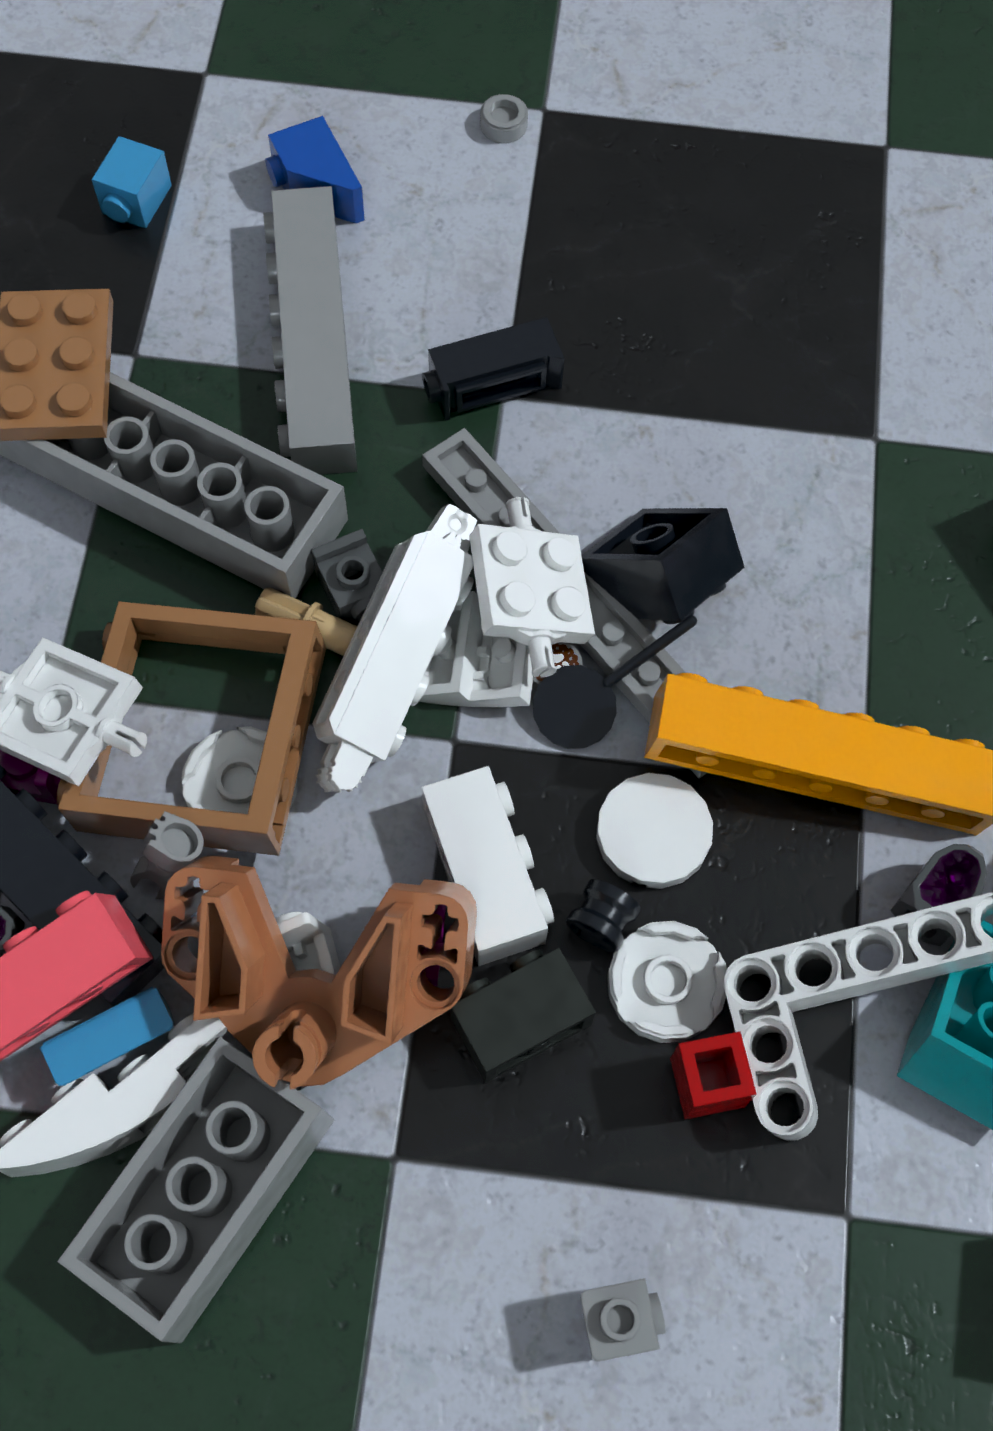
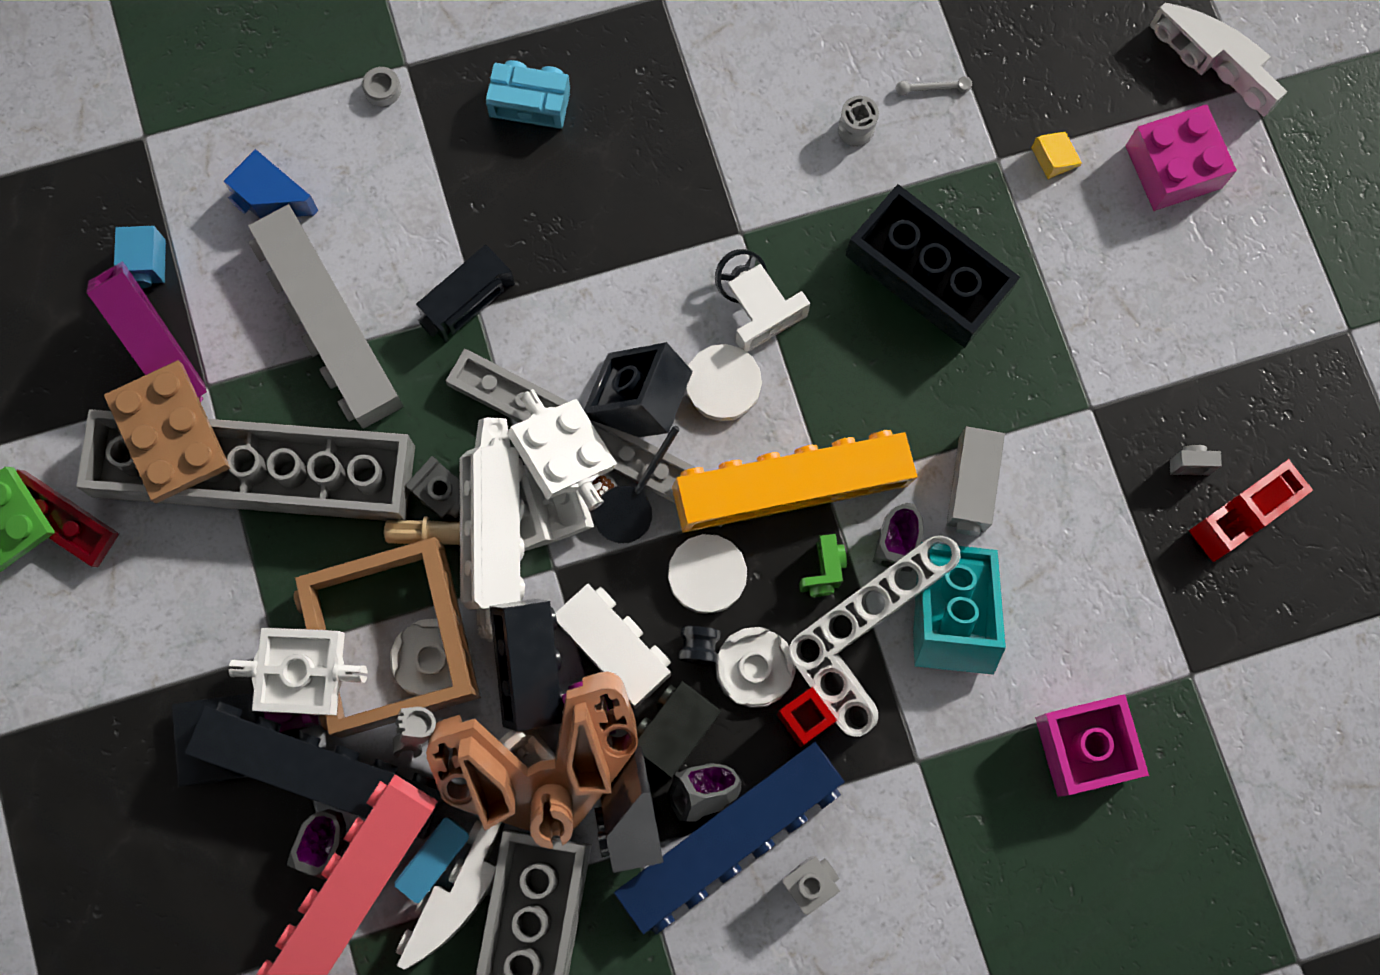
camera: 25 degrees left, 10 degrees up
(86, 236) = (138, 323): none -> magenta slope
(360, 831) = (527, 664): none -> black brick
(401, 1101) = (628, 819): none -> black slope
(522, 1115) = (703, 790): none -> dark grey rock
(529, 1199) = (730, 837): none -> dark blue brick
(675, 184) = (528, 94): none -> medium azure brick
(778, 602) = (724, 382): none -> white tile
(833, 882) = (831, 560): none -> bright green bracket
(874, 523) = (760, 300): none -> white piece

